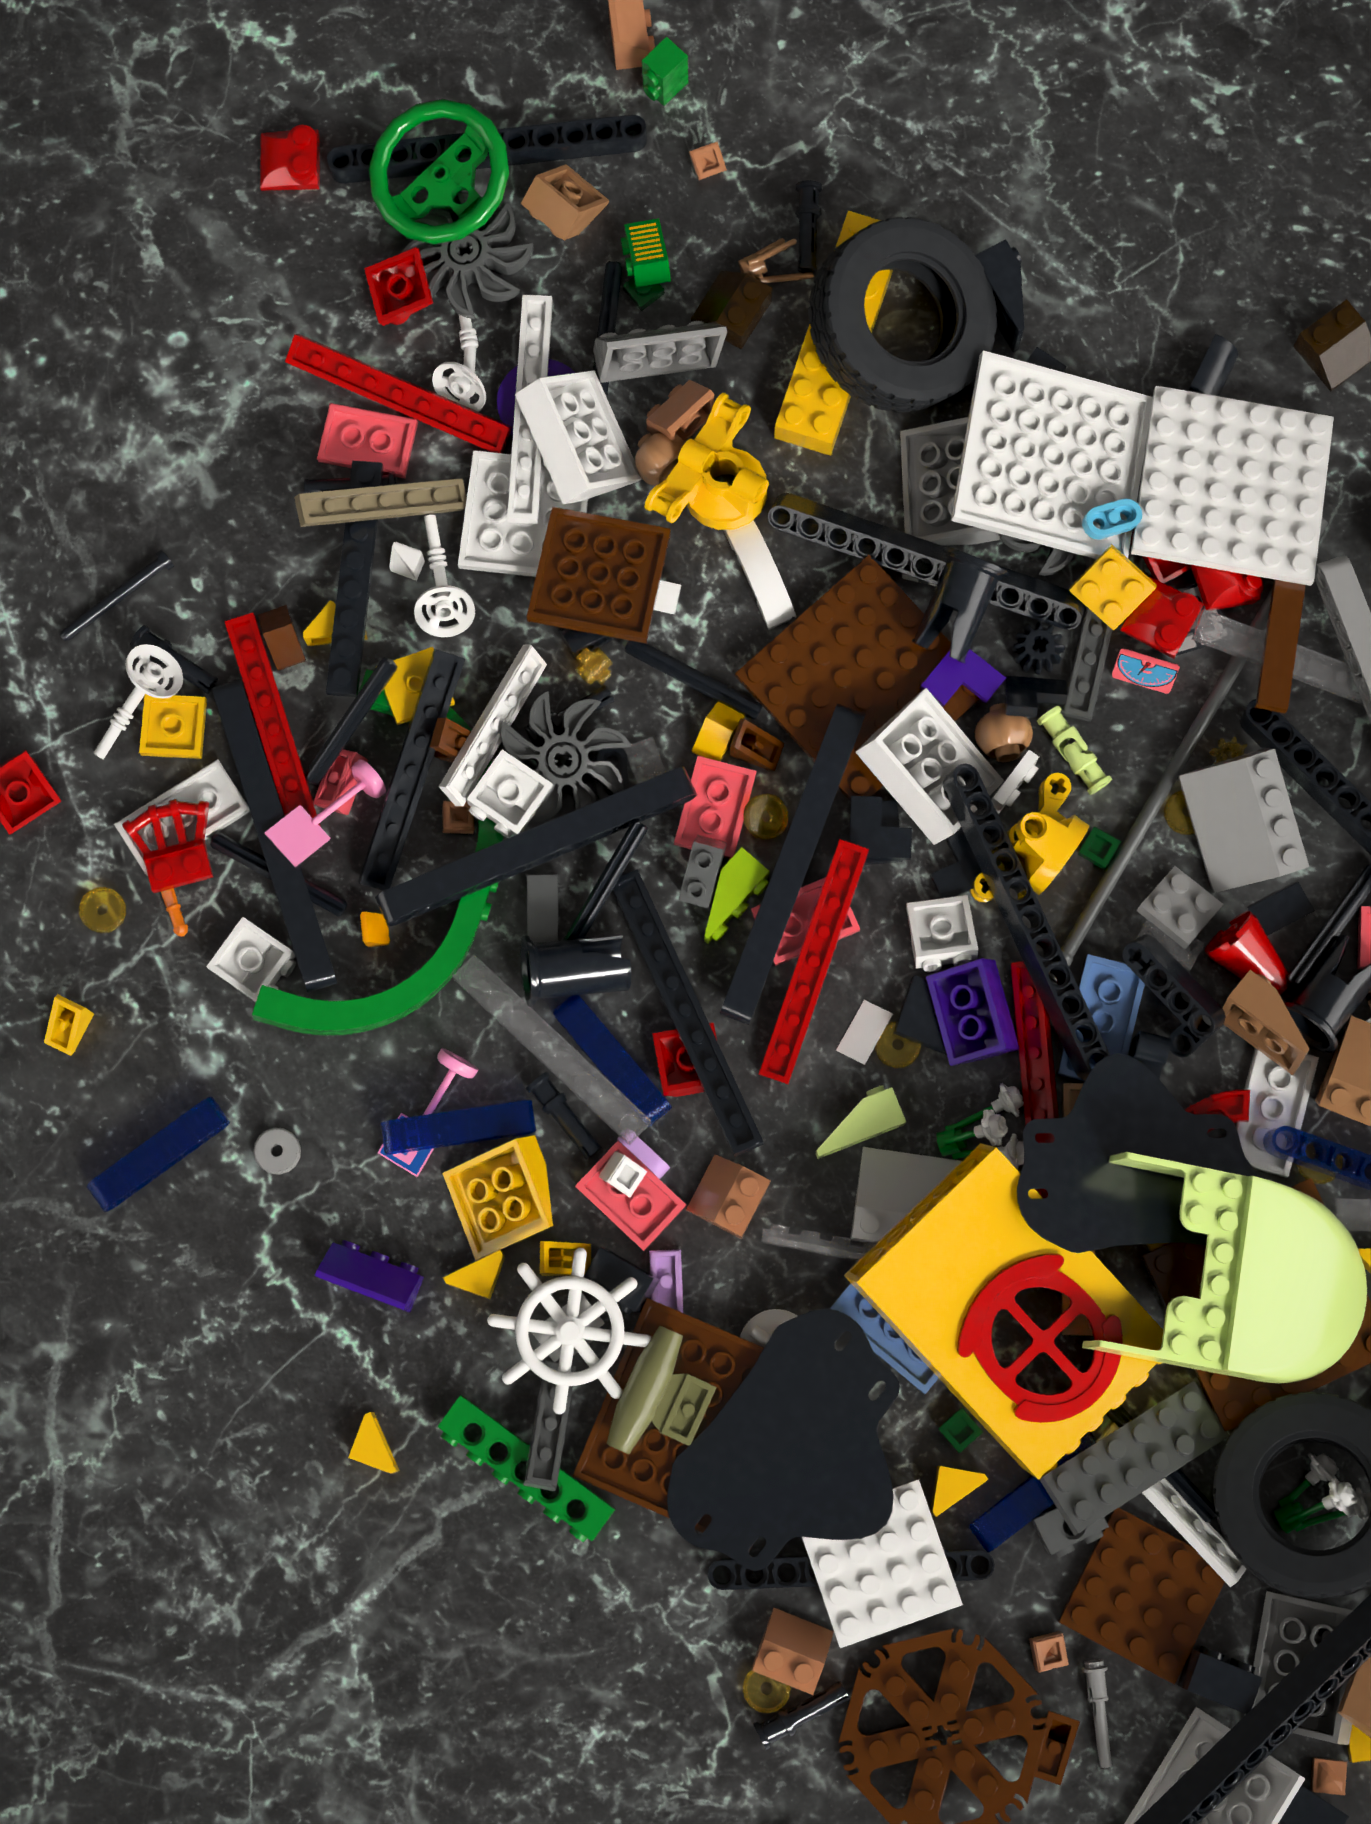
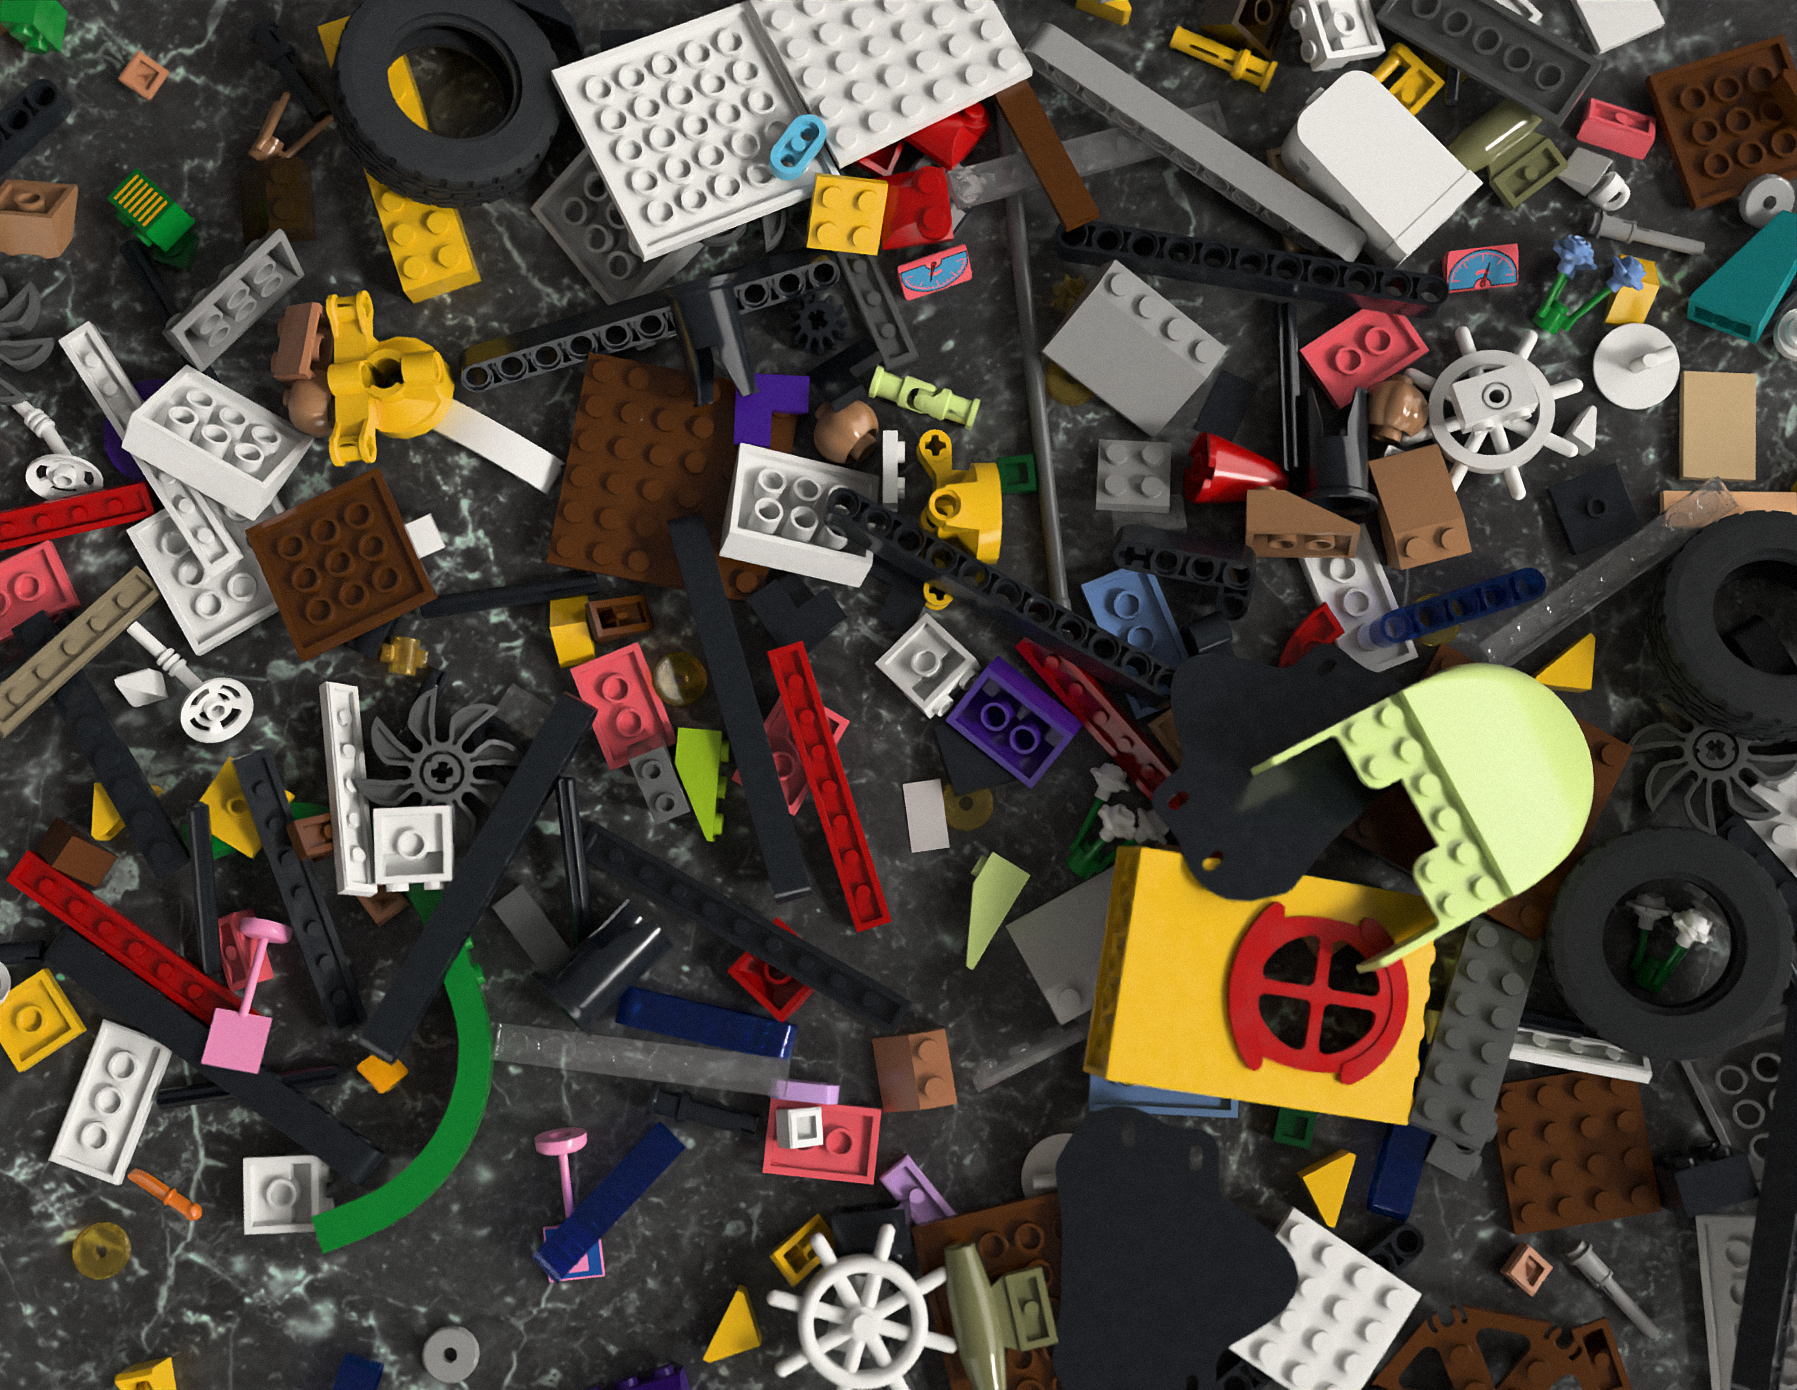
camera: 40 degrees left, 5 degrees up
(177, 863) = (140, 1152): red plate -> none
(502, 1195) = (700, 1234): yellow slope -> none

